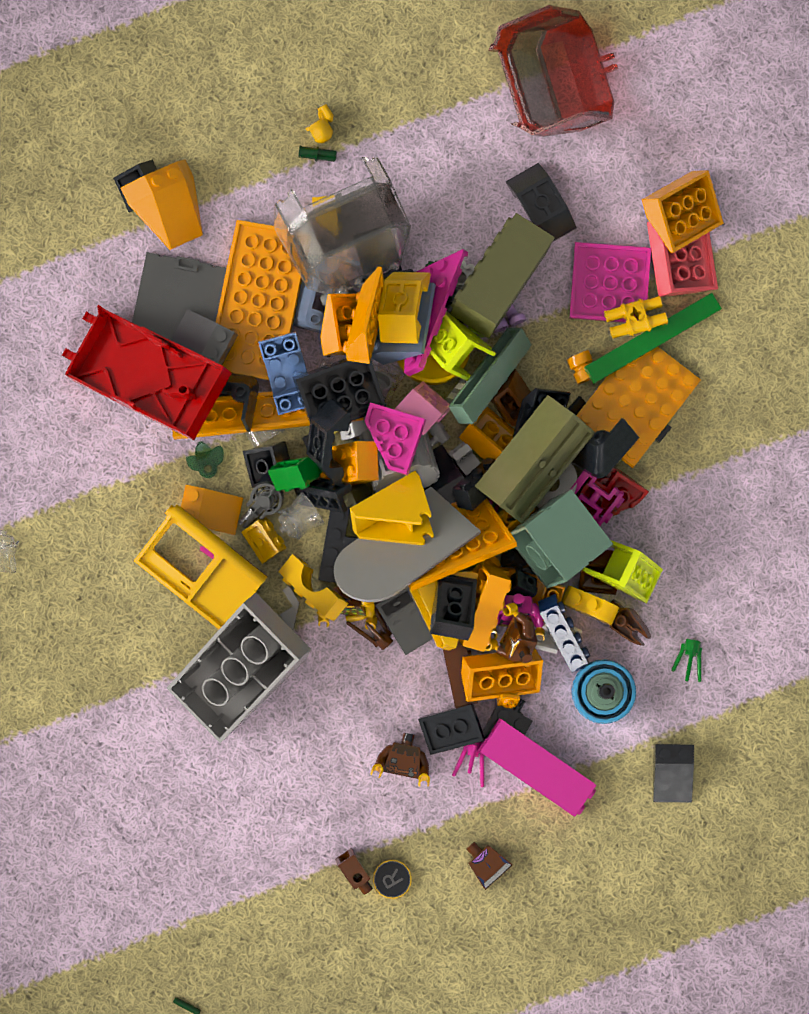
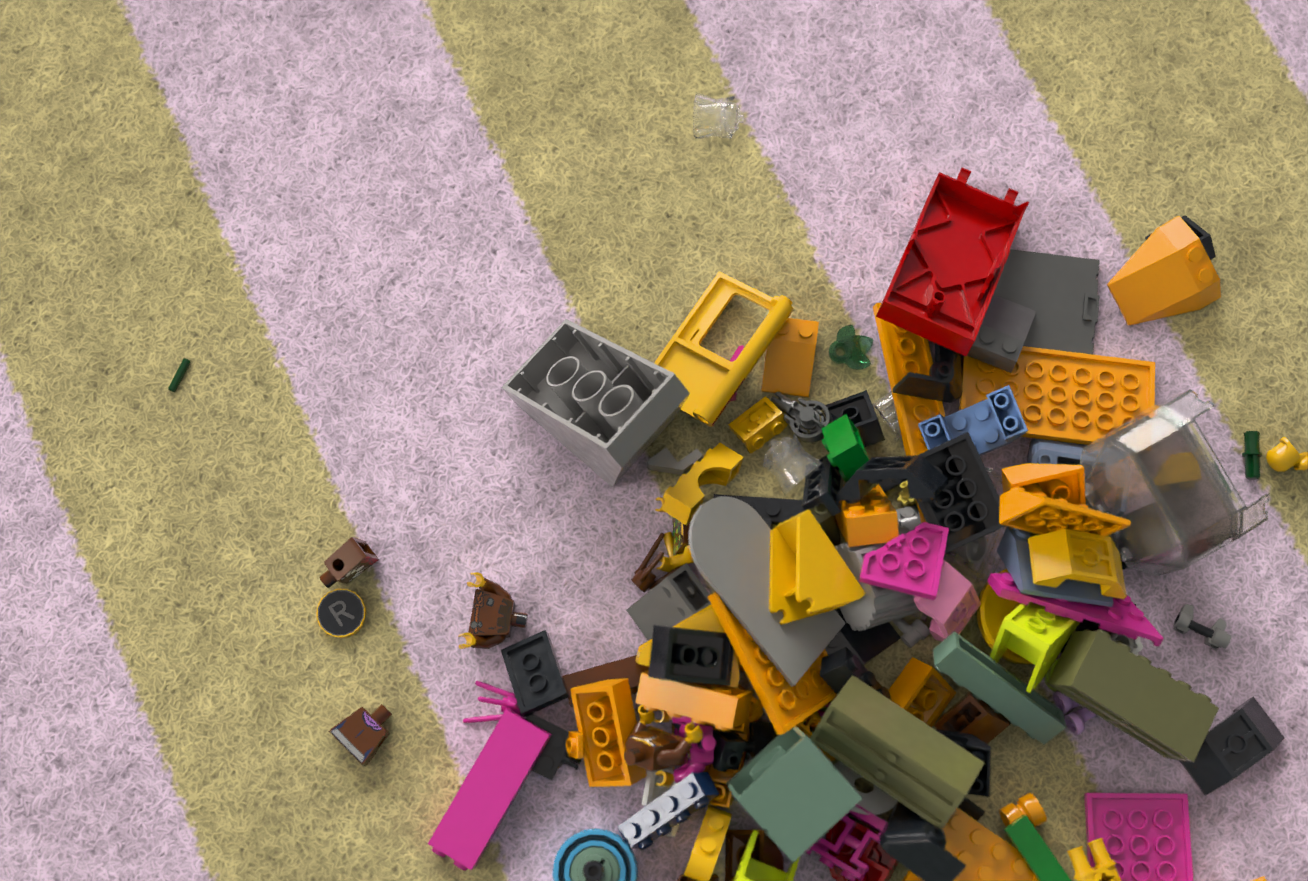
camera: 85 degrees right, 10 degrees down
(458, 203) = (1214, 637): none -> light grey piece
(464, 458) = (887, 665): light grey brick -> none

